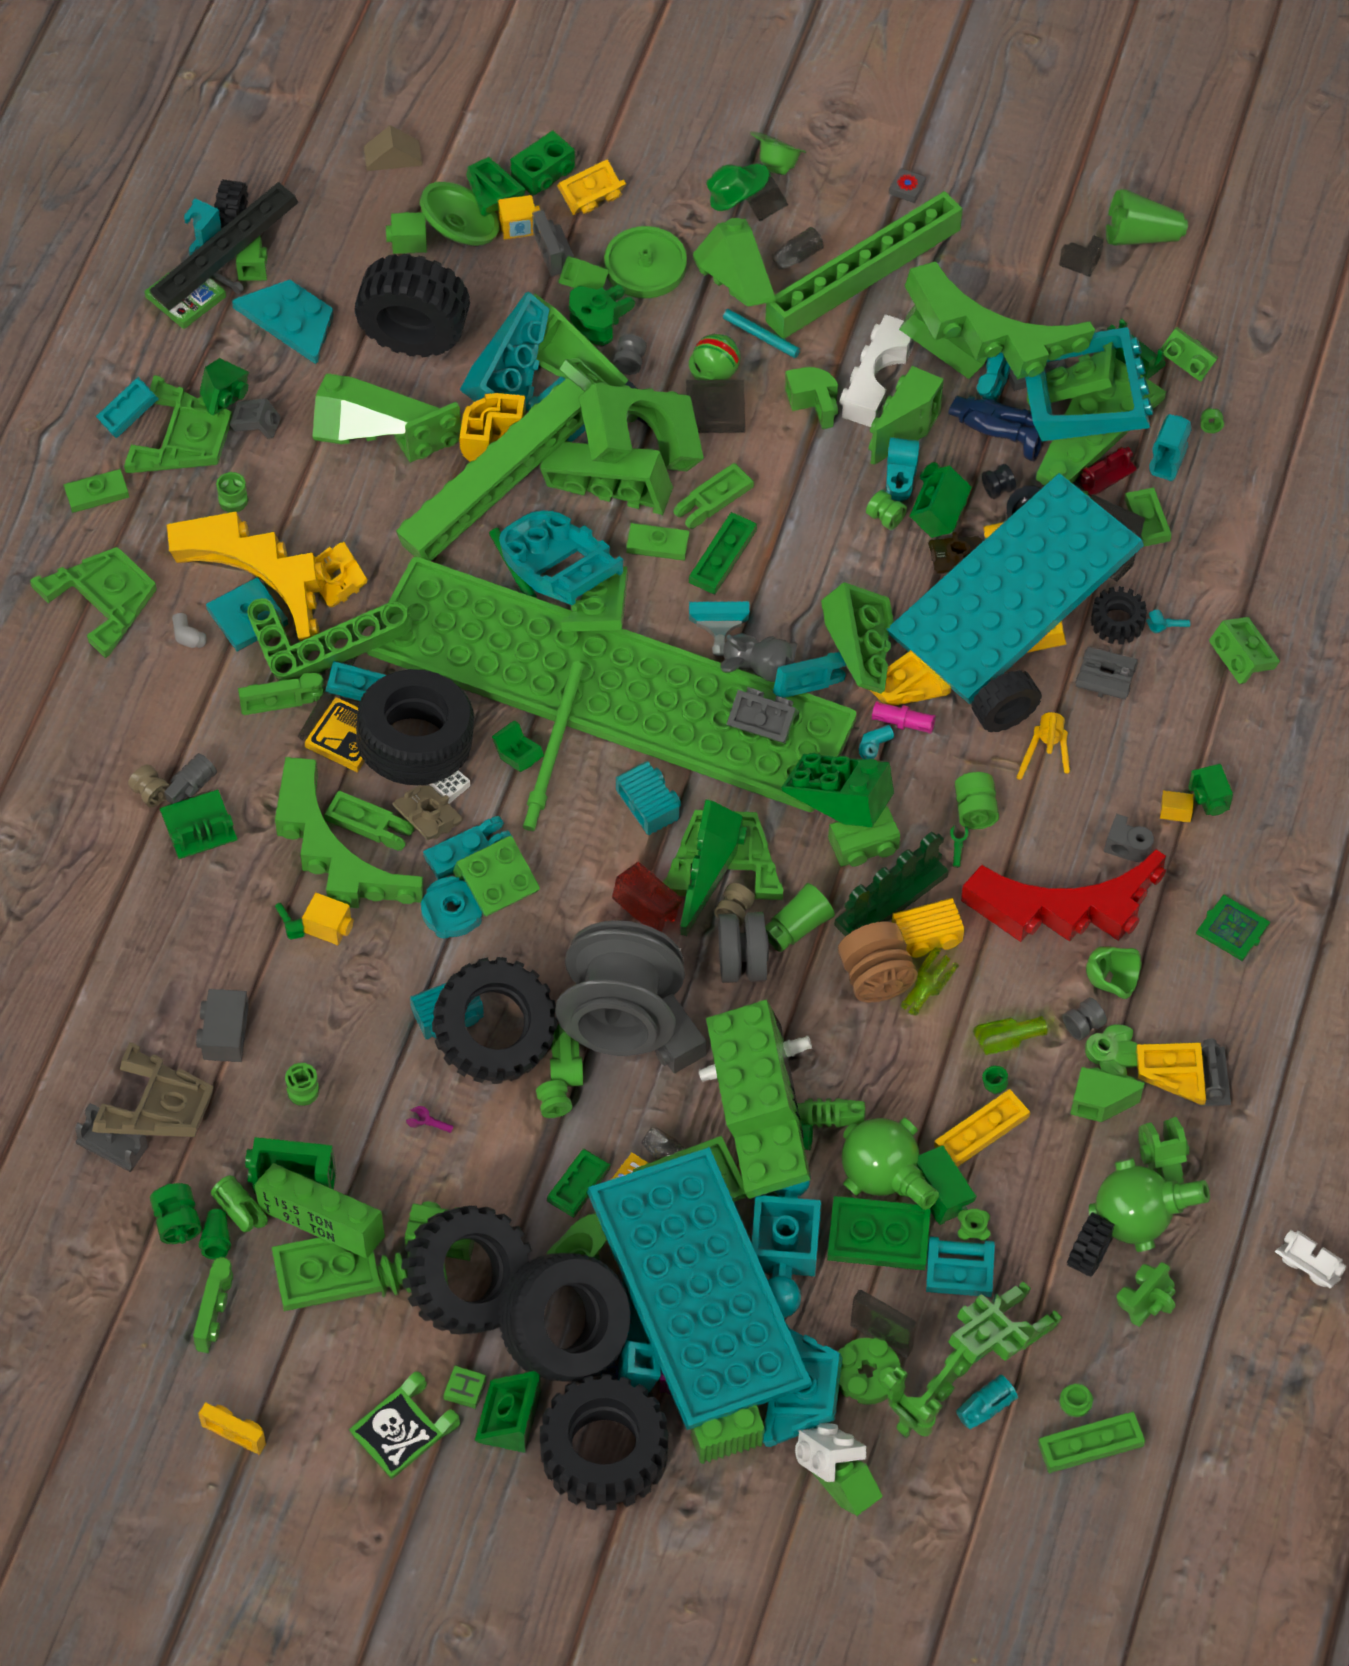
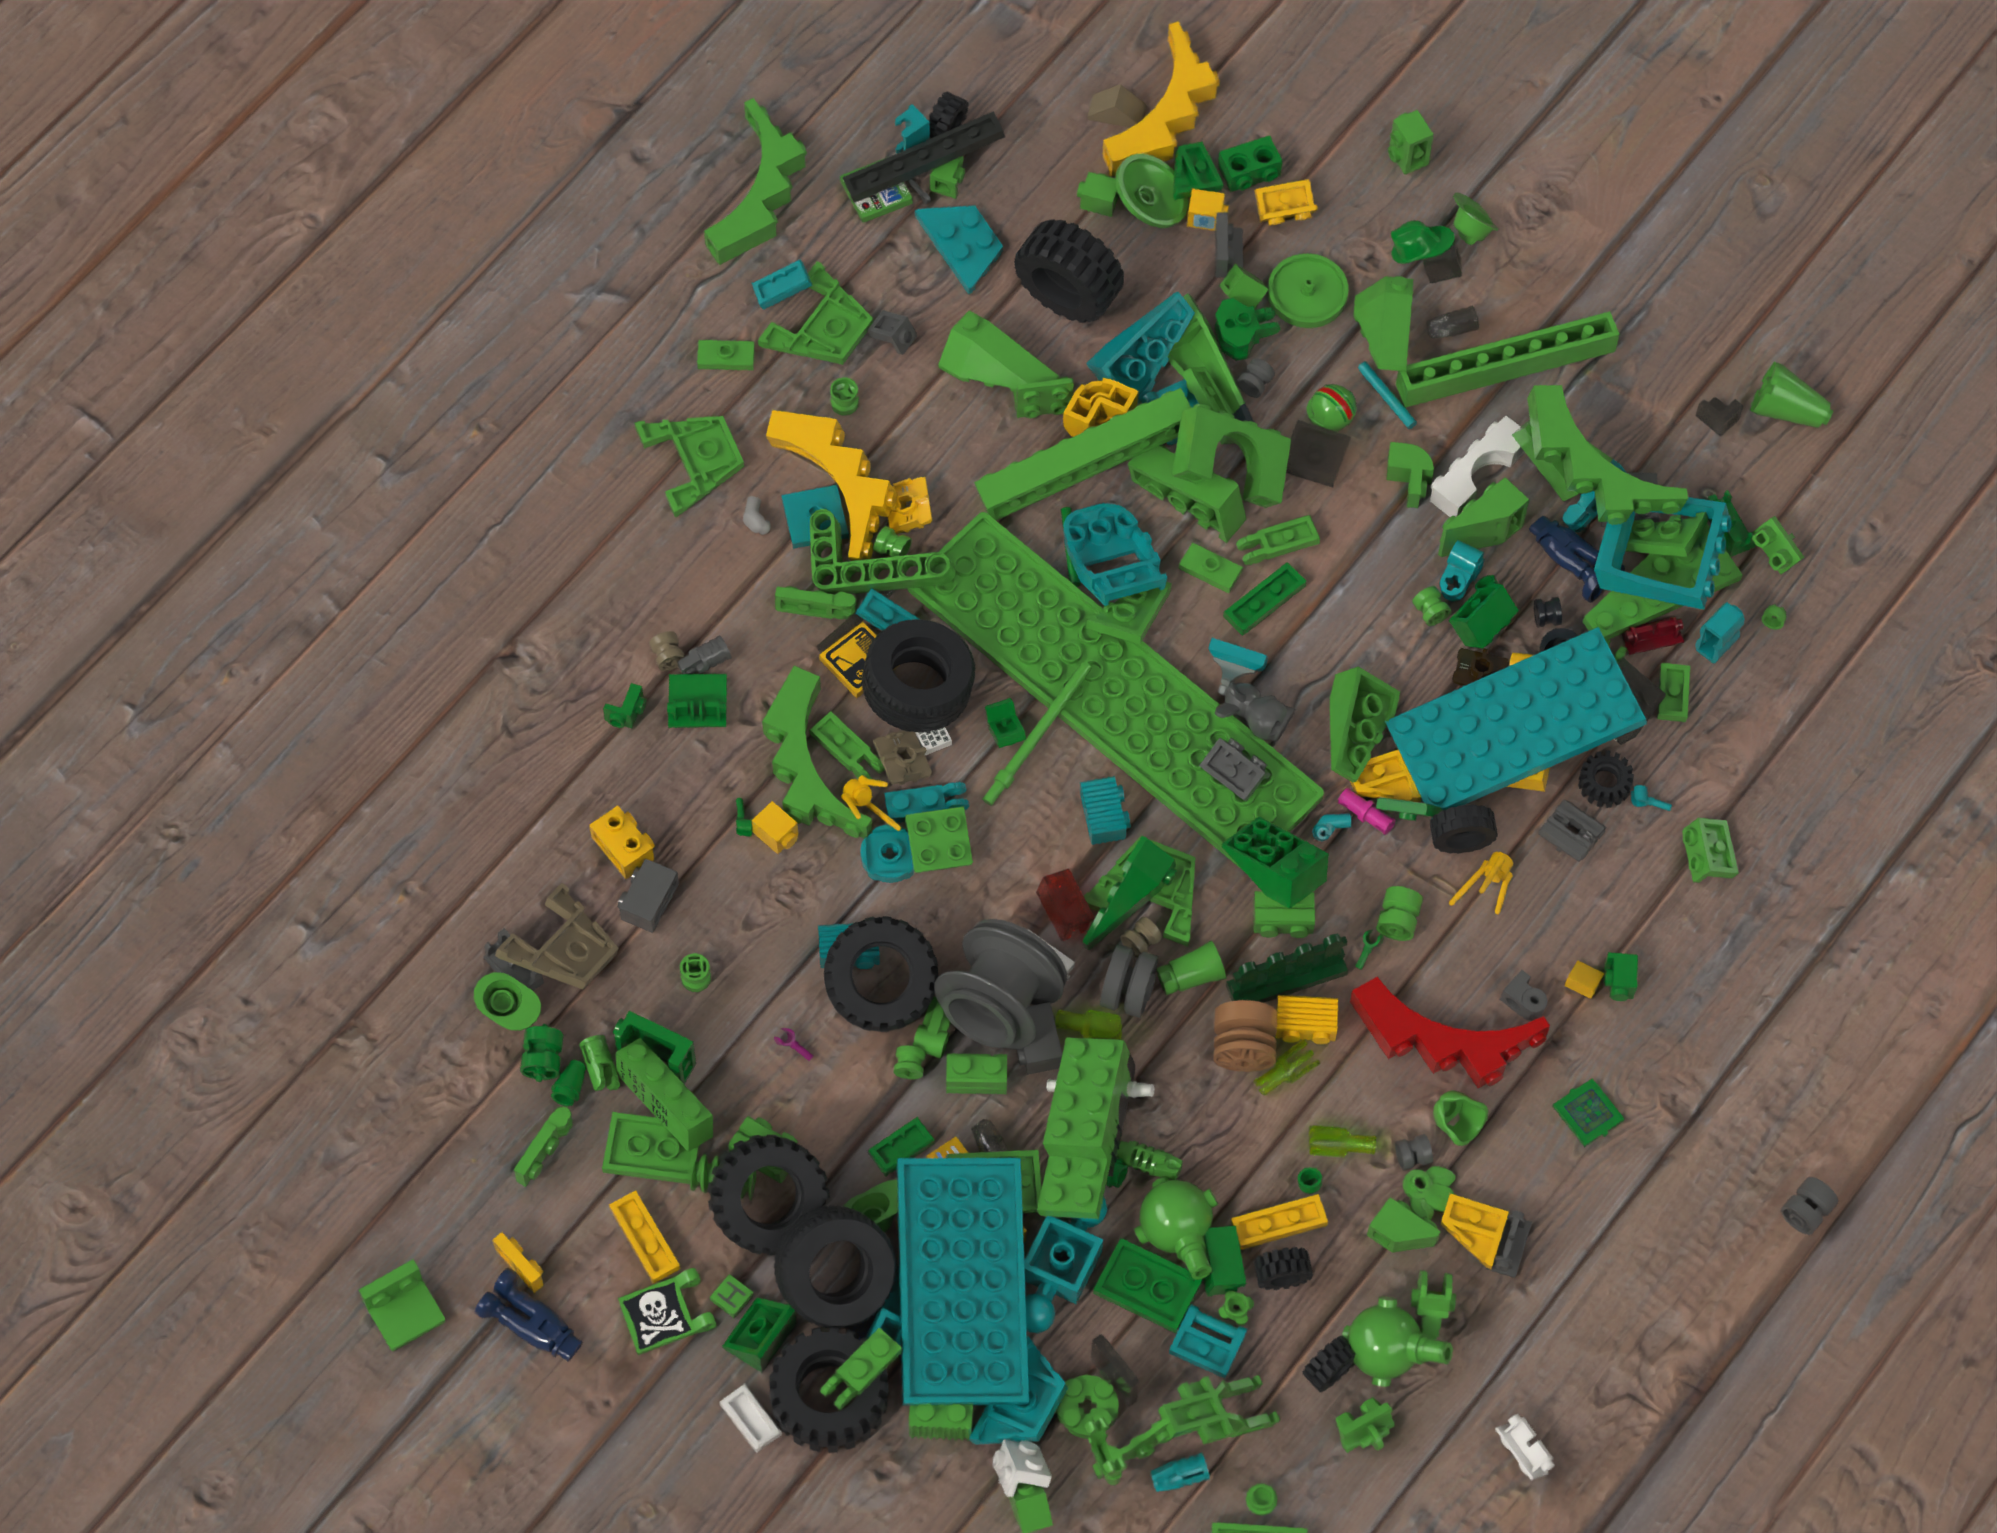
camera: 20 degrees right, 5 degrees up
(75, 354) = (754, 218): none -> bright green arch
(121, 1174) = (507, 1001): none -> bright green piece
(127, 1513) = (401, 1305): none -> bright green bracket
(130, 861) = (627, 714): none -> green bracket
(176, 981) = (622, 841): none -> yellow brick
(222, 385) = (873, 291): green slope -> none
(285, 1483) = (544, 1329): none -> dark blue piece
(333, 614) = (891, 544): none -> bright green wheel
(352, 1359) = (644, 1237): none -> yellow plate
(400, 860) = (858, 793): none -> yellow plant
(452, 136) = (1175, 112): none -> yellow arch
(532, 1500) = (750, 1418): none -> white tile
(626, 1087) = (976, 1073): none -> bright green brick
(634, 1403) = (863, 1367): none -> bright green hinge
(690, 97) = (1410, 142): none -> bright green brick
(719, 1001) = (1091, 1024): none -> clear neon green arm
(809, 675) = (1293, 744): teal hinge -> none
(907, 185) = (1583, 291): dark grey tile -> none
(945, 700) = (1407, 809): none -> green plate
(1006, 1169) = (1283, 1268): none -> black tyre

